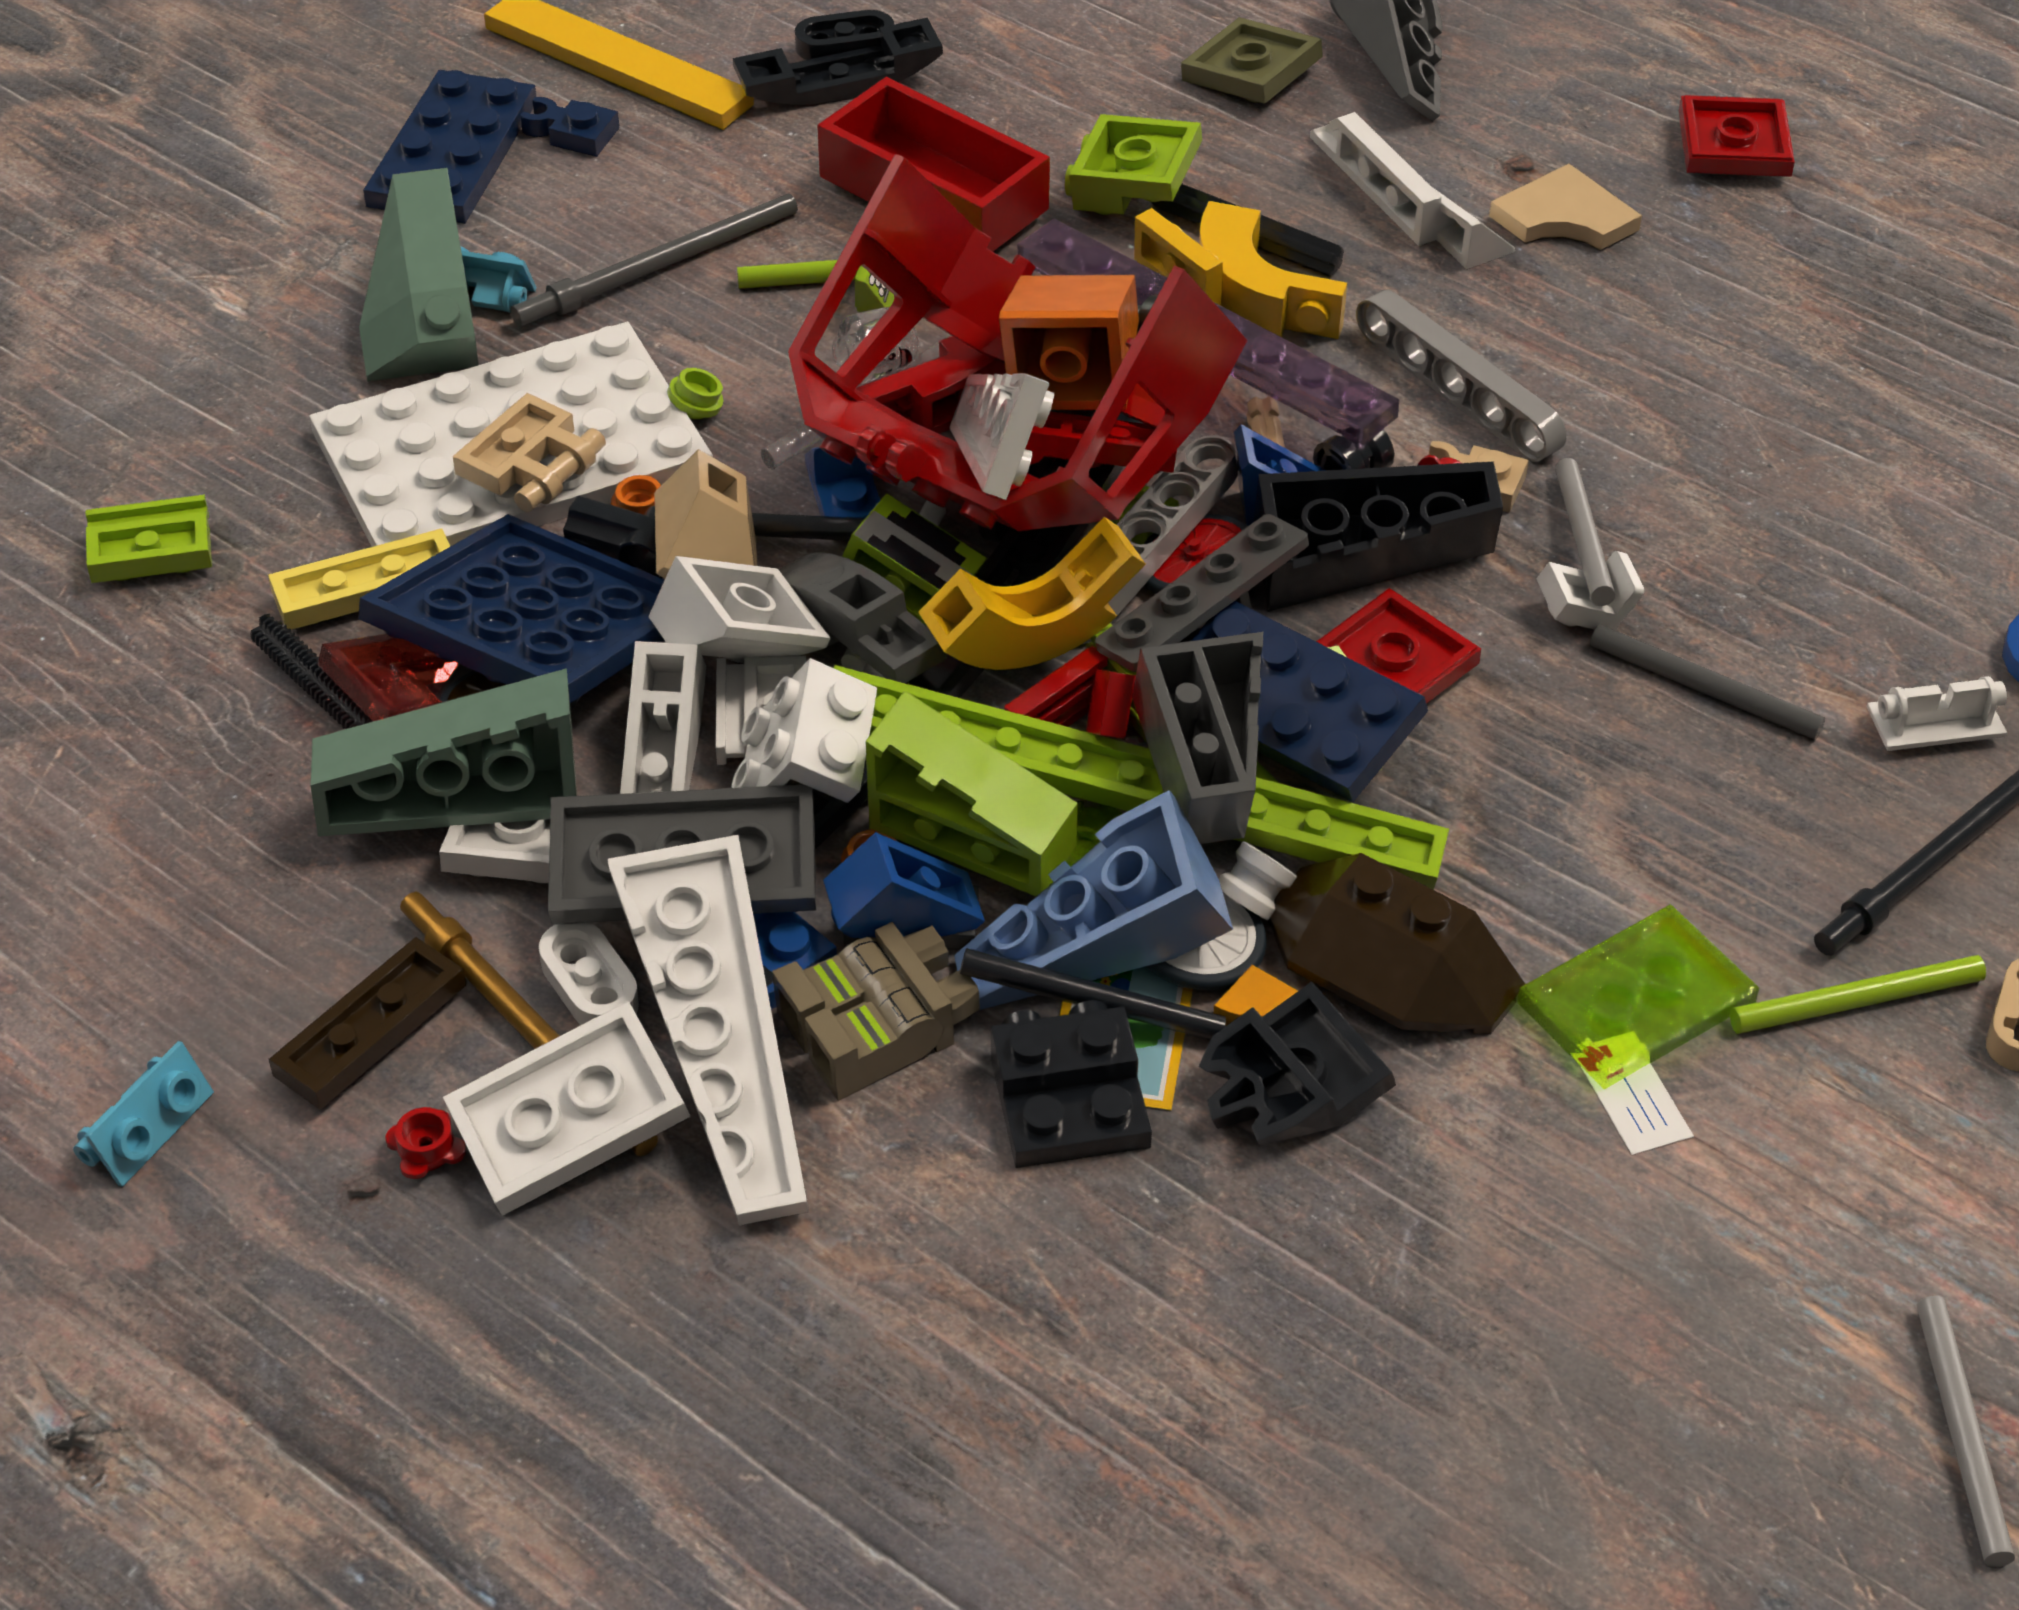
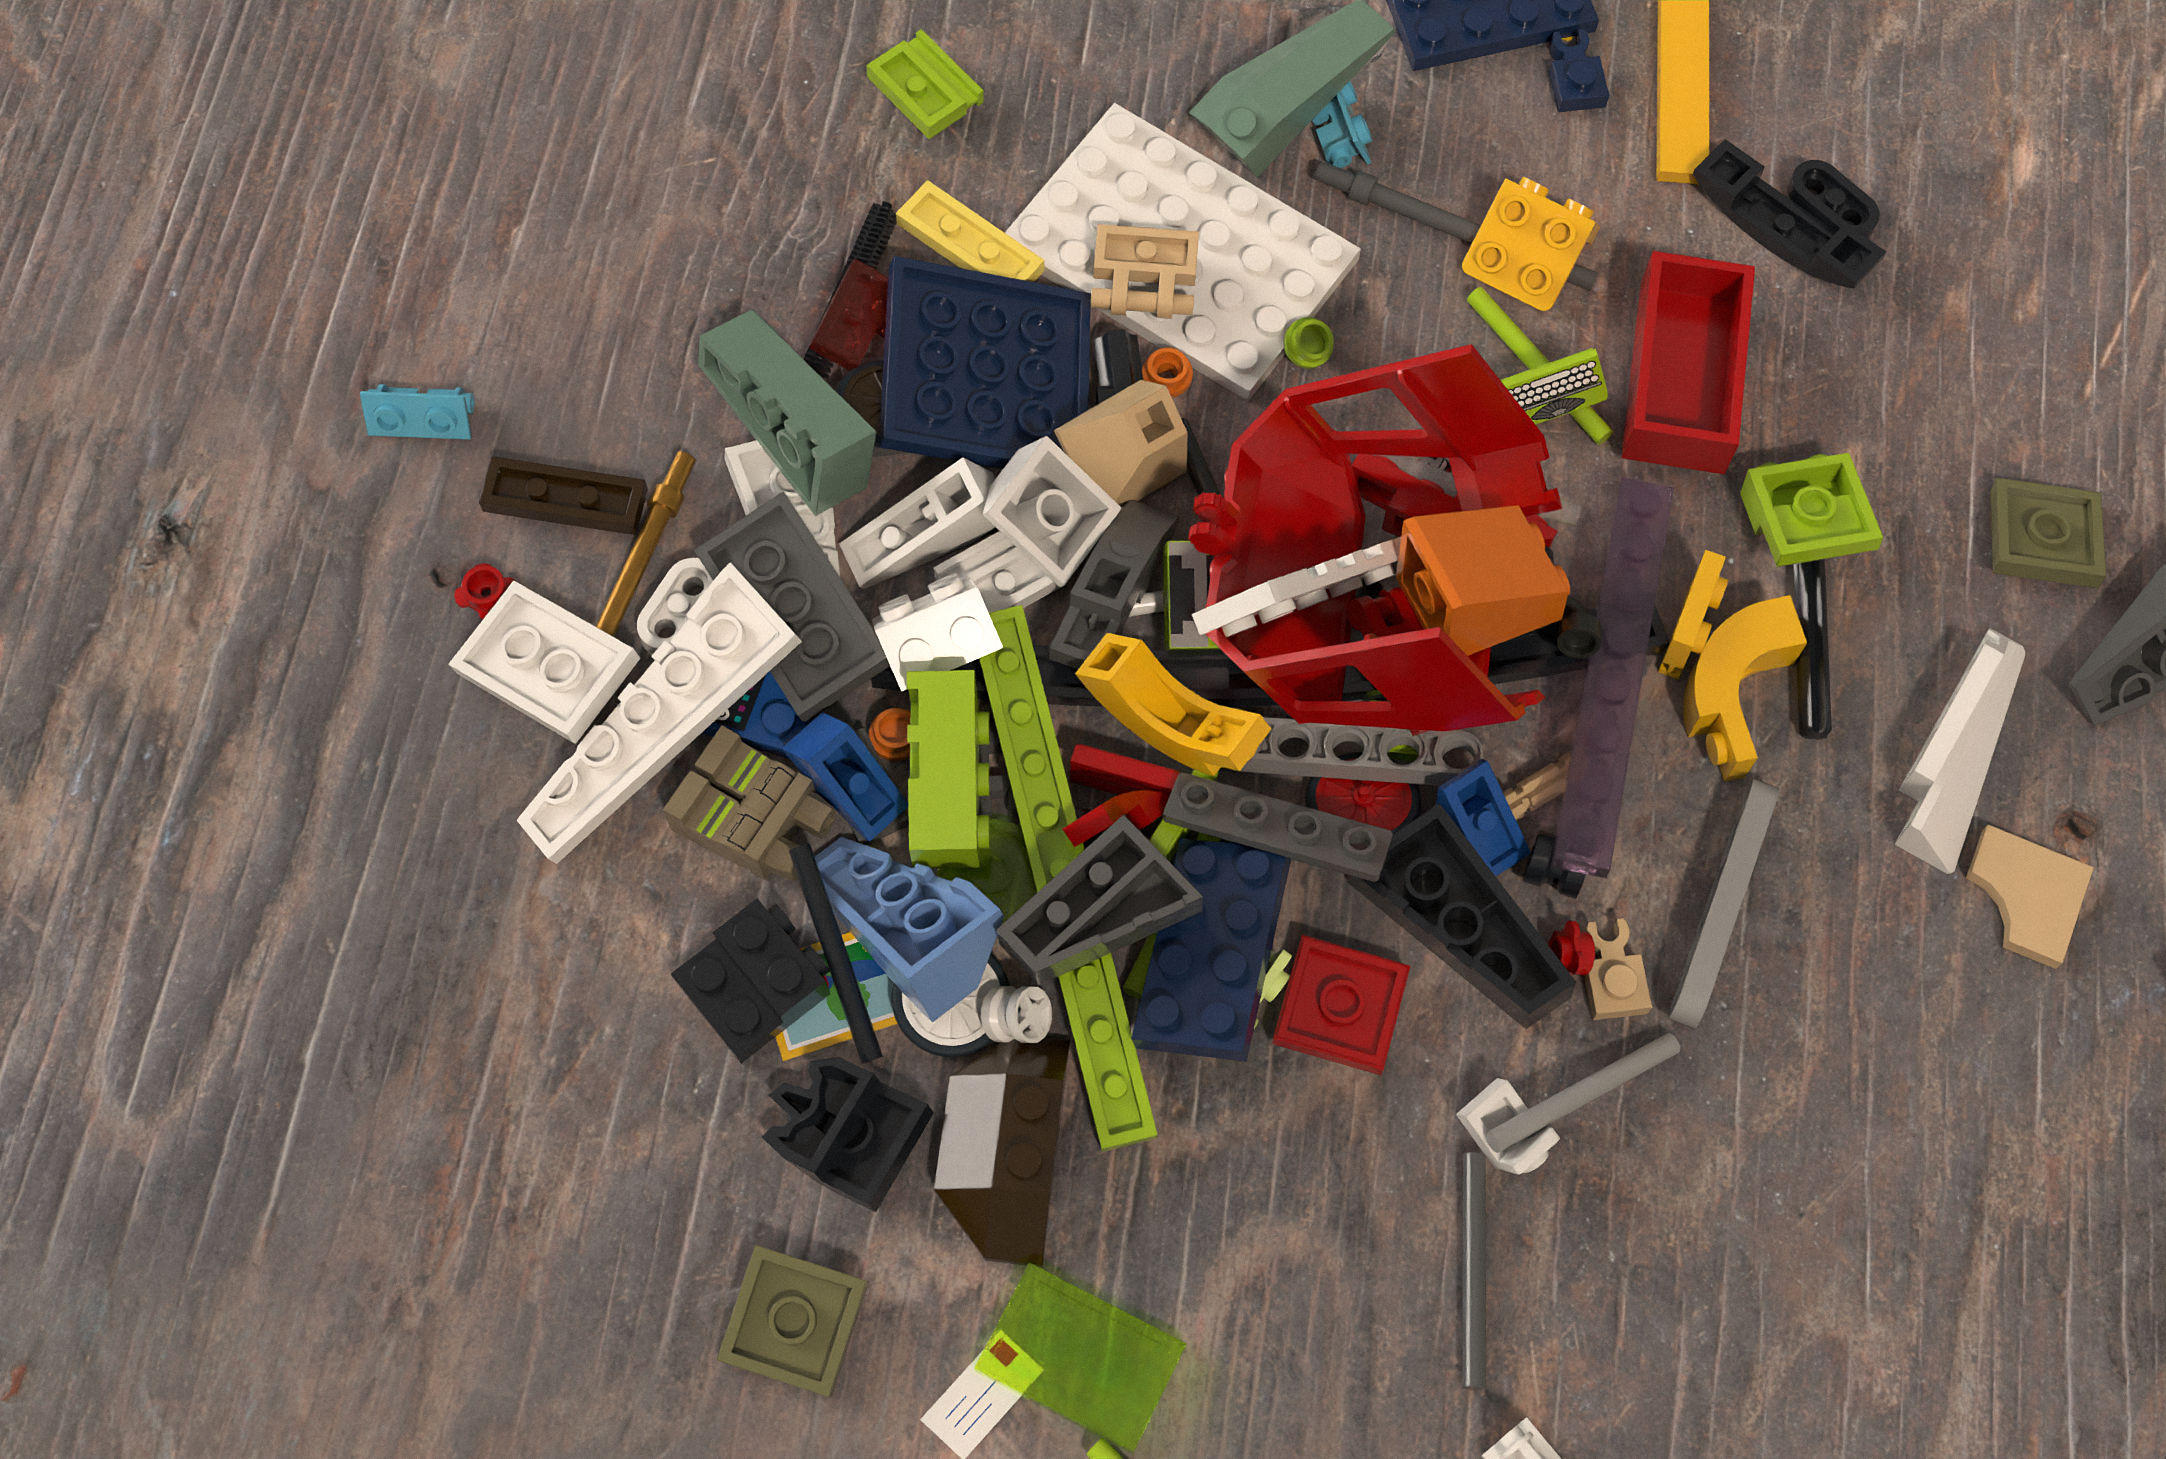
camera: 60 degrees right, 20 degrees up
(723, 214) = (1529, 243): none -> yellow bracket
(1254, 990) = (912, 1071): light orange tile -> none
(1474, 1203) = (793, 1321): none -> olive plate

